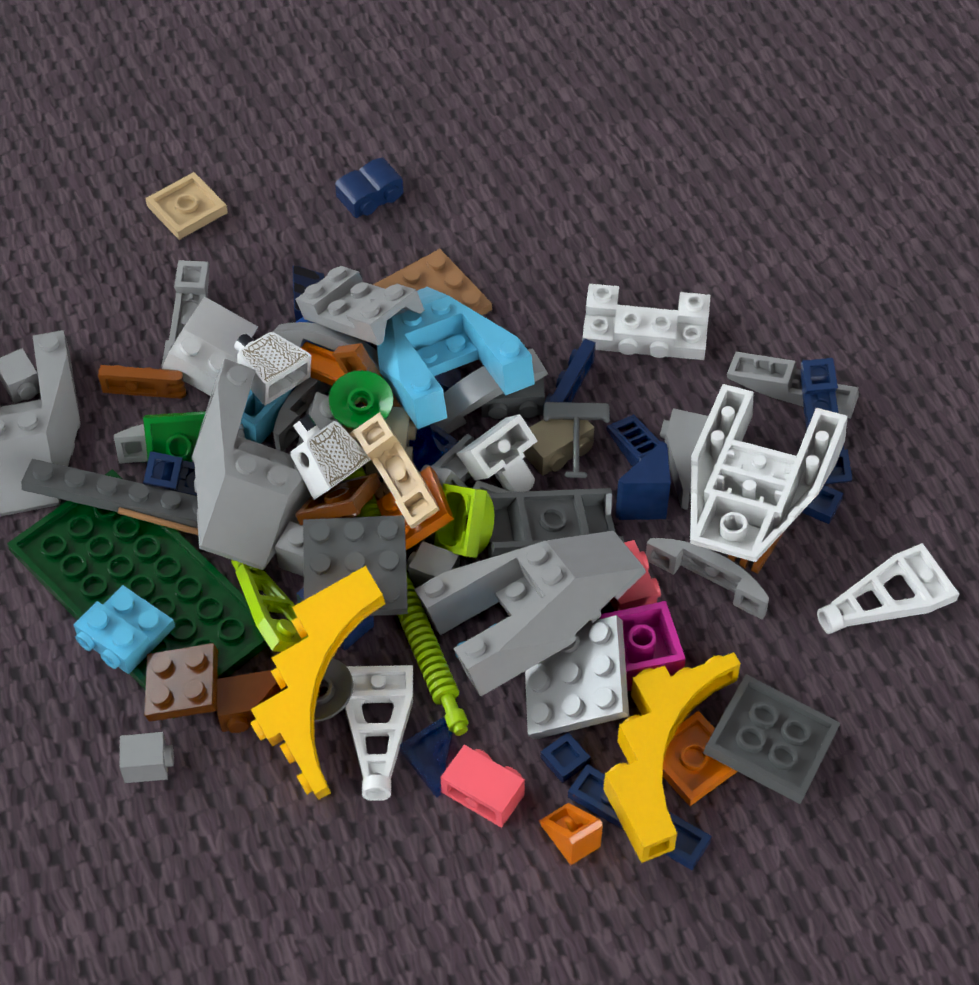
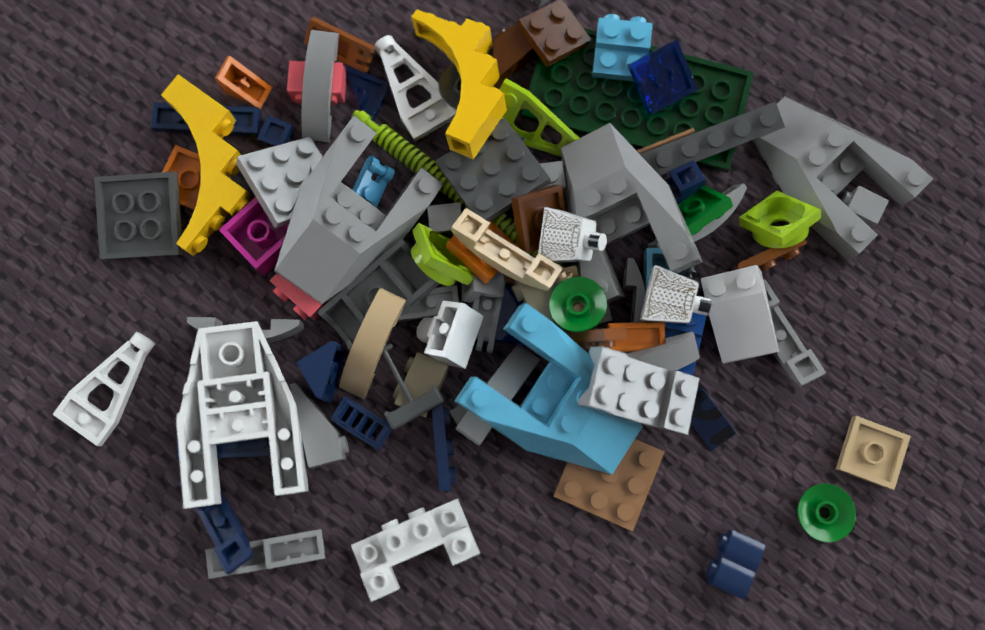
camera: 150 degrees right, 25 degrees up
(86, 388) = (780, 208): none -> lime piece
(108, 569) = (662, 77): none -> clear blue plate
(263, 184) = (840, 514): none -> green dish
(430, 817) = (349, 47): none -> dark orange hinge
(477, 765) = (317, 85): none -> light grey slope
(577, 479) = (370, 342): none -> tan slope

